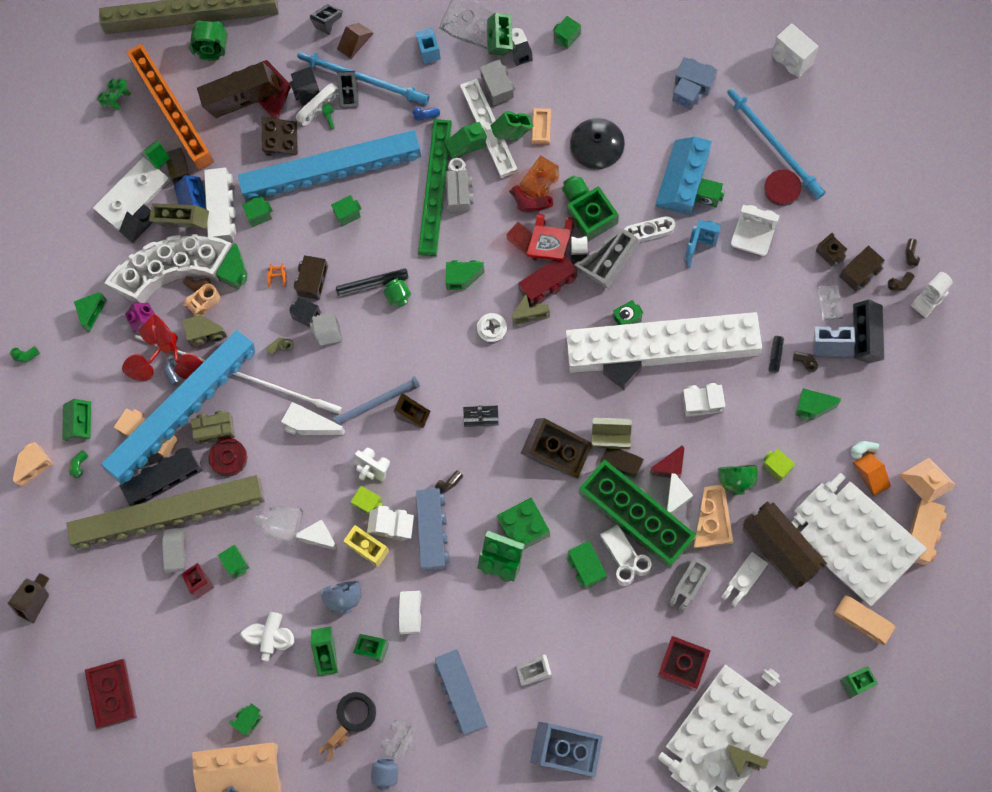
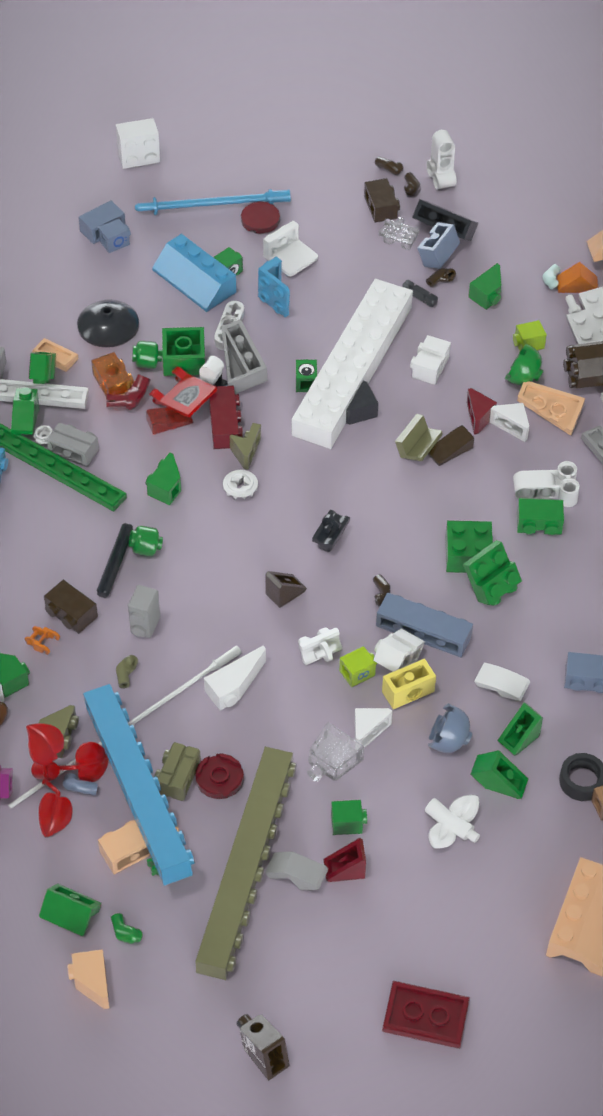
camera: 70 degrees left, 20 degrees down
(161, 477) = (202, 841): black brick -> none
(201, 301) = (19, 717): light nougat piece -> none
(247, 719) = (536, 882): green brick -> none
(304, 311) = (105, 629): black brick -> none
(346, 210) = (18, 544): green brick -> none
(376, 401) = (253, 572): sand blue bar -> none
(556, 447) = (402, 487): dark brown slope -> none
(637, 514) = (502, 454): green brick -> none
(829, 255) = (348, 211): dark brown brick -> none

